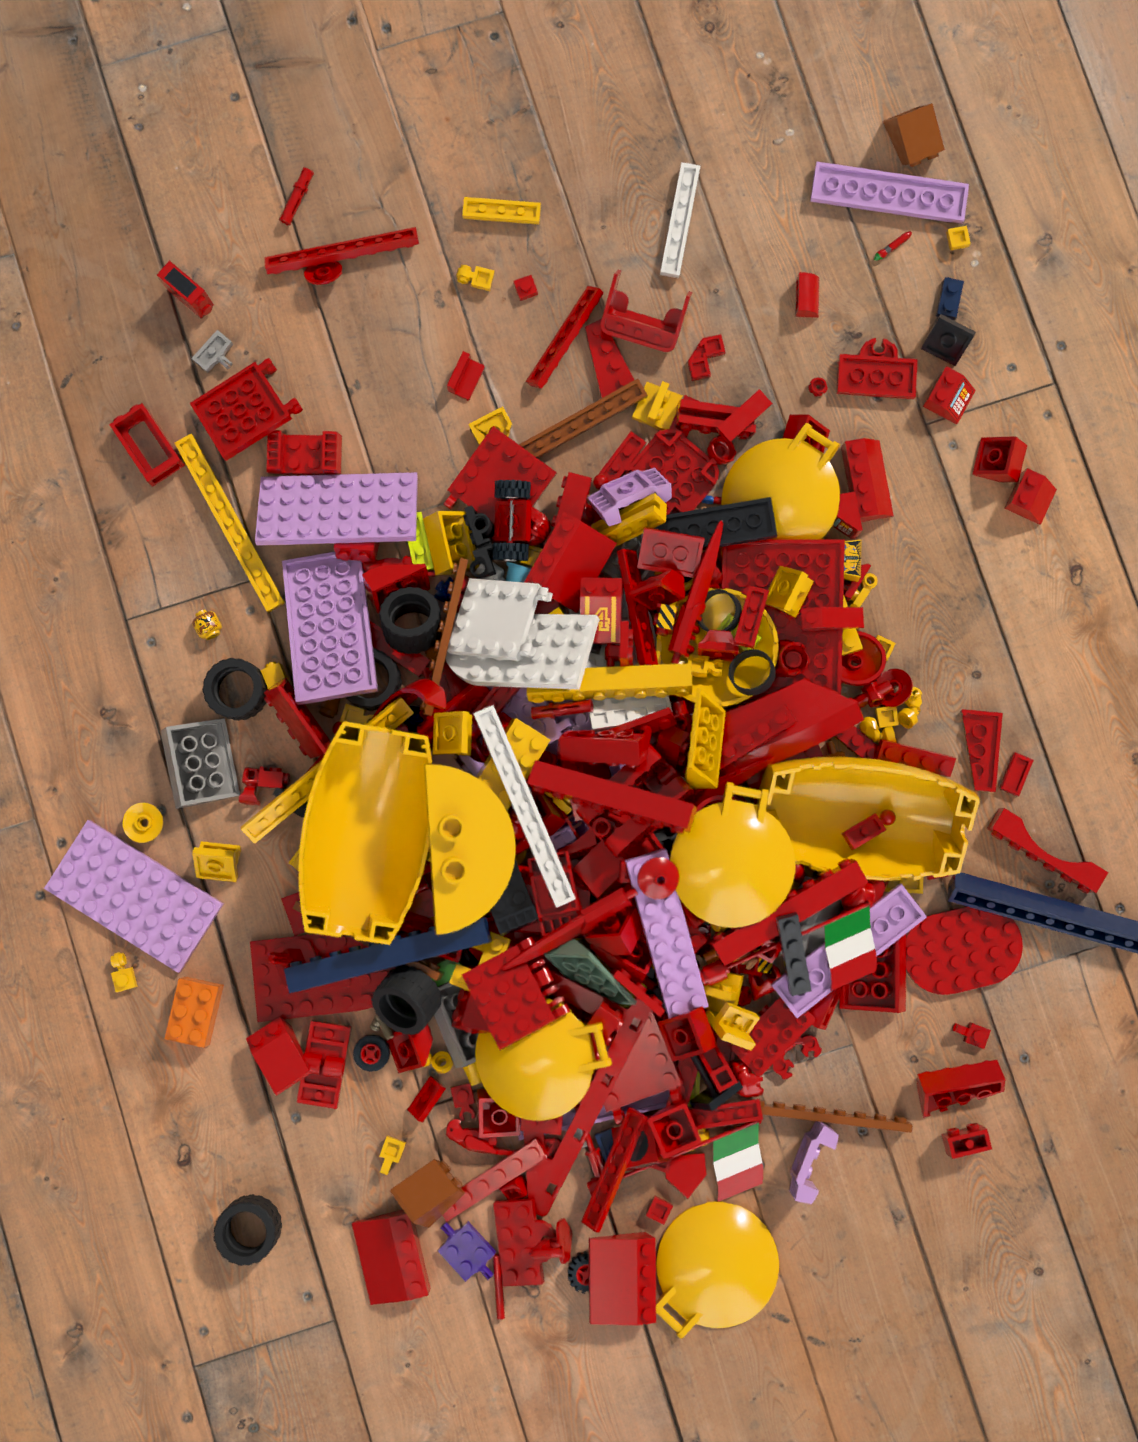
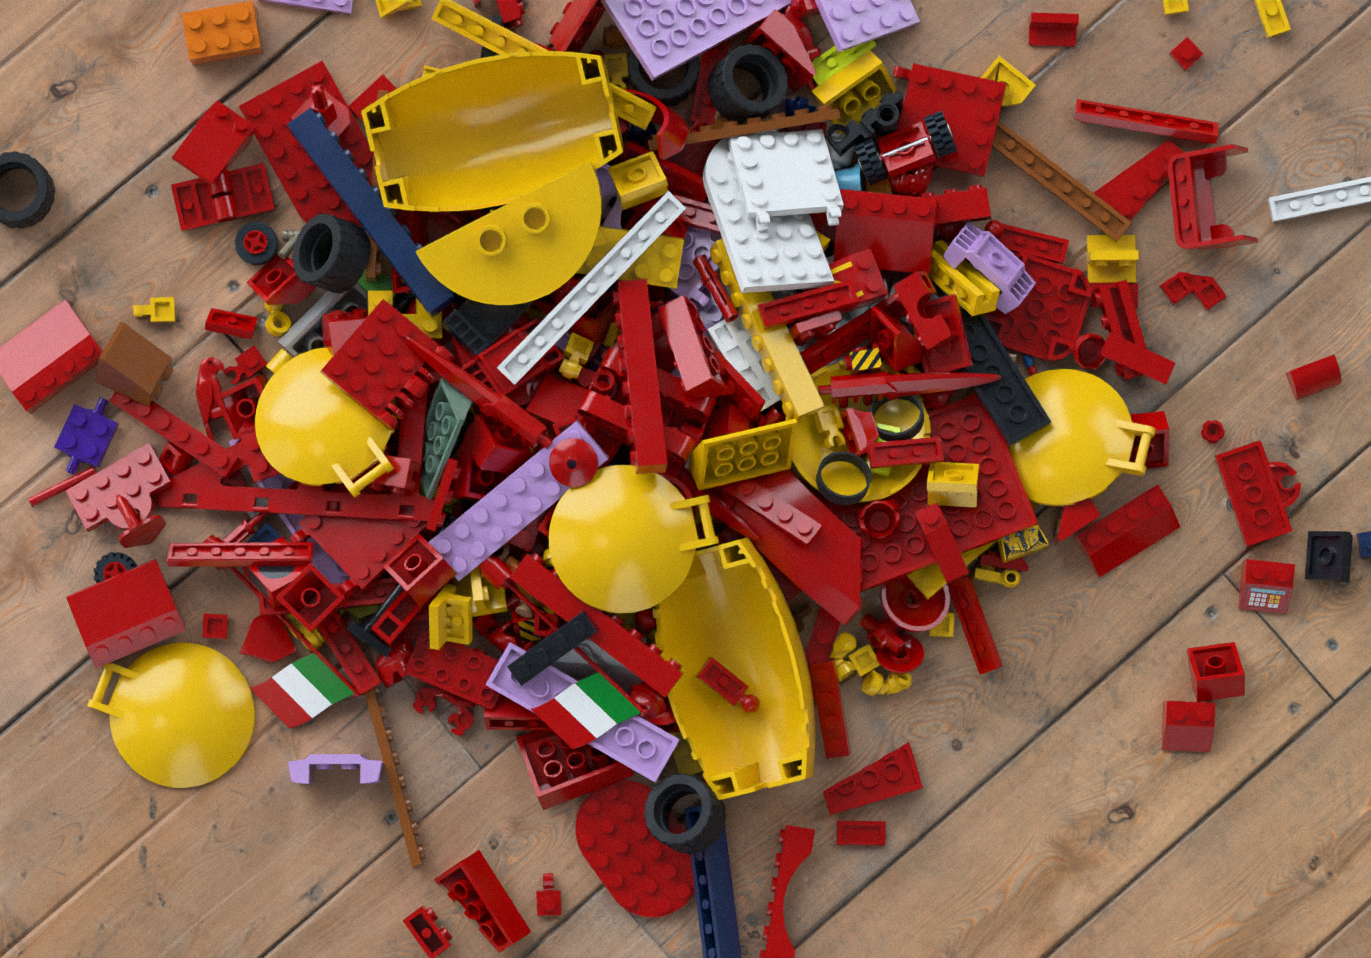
camera: 65 degrees right, 0 degrees up
(566, 837) = (577, 352): none -> yellow plate
(607, 642) = (807, 304): none -> red plate
(630, 559) = (913, 293): none -> red arch
(898, 623) = (974, 625): none -> red plate
(958, 927) = (663, 798): none -> black tyre

